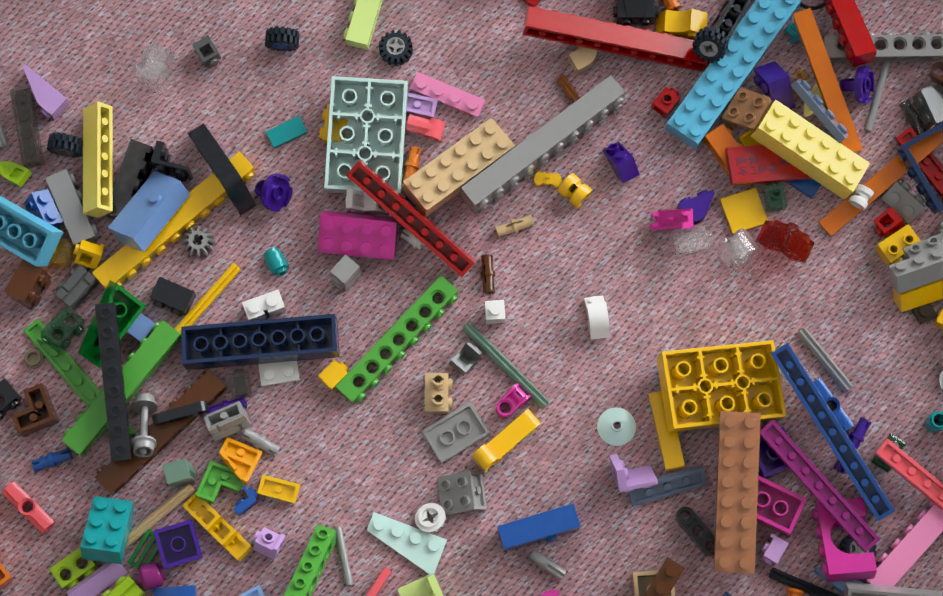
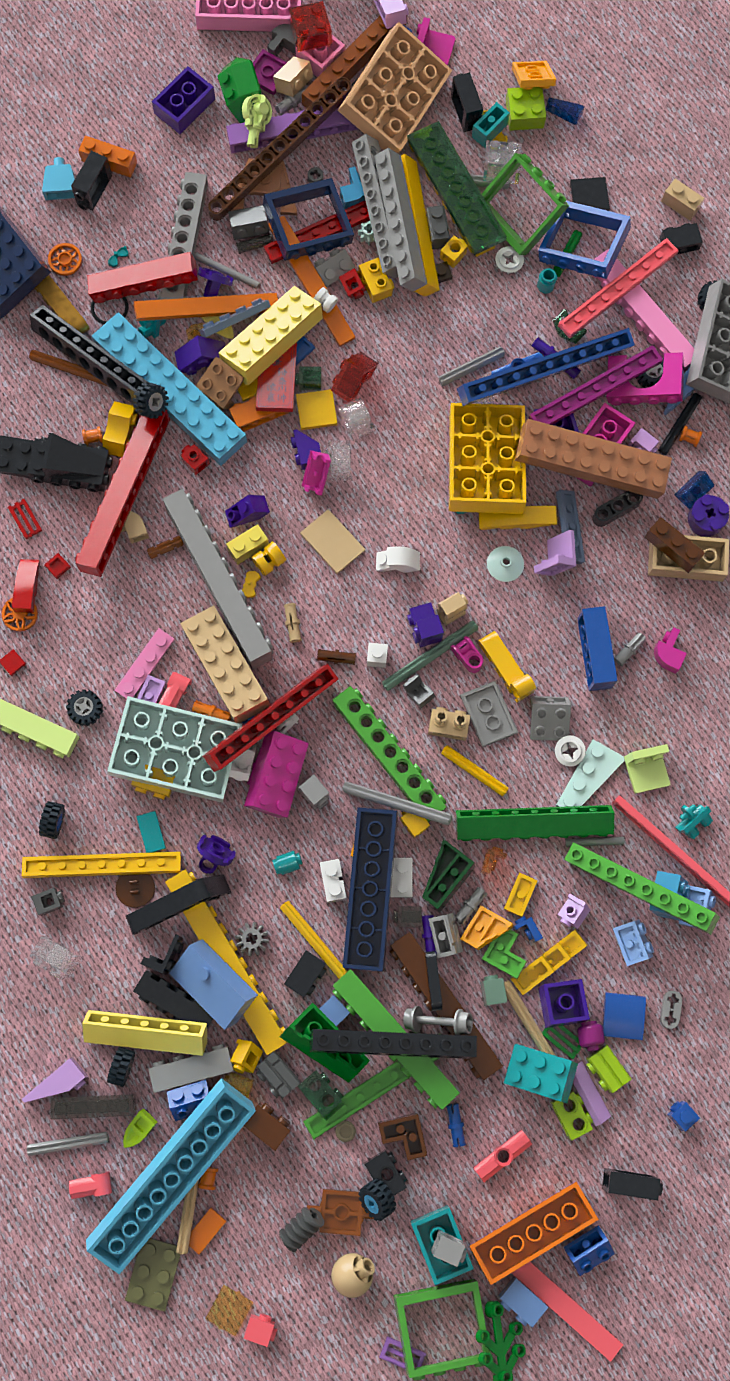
camera: 85 degrees left, 0 degrees up
(232, 128) = (135, 889): none -> reddish brown piece
(248, 93) = (101, 864): none -> yellow plate
(284, 413) = (447, 876): none -> dark green wedge
(306, 453) = (489, 862): none -> clear orange bracket
(347, 354) = (397, 803): none -> light grey axle
(351, 492) = (534, 822): none -> green brick
(395, 427) = (474, 770): none -> yellow axle
(534, 353) = (425, 624): none -> dark purple brick
(554, 376) = (452, 608): none -> tan brick
(585, 167) = (247, 544): none -> light yellow brick
(606, 250) = (332, 541): none -> tan tile

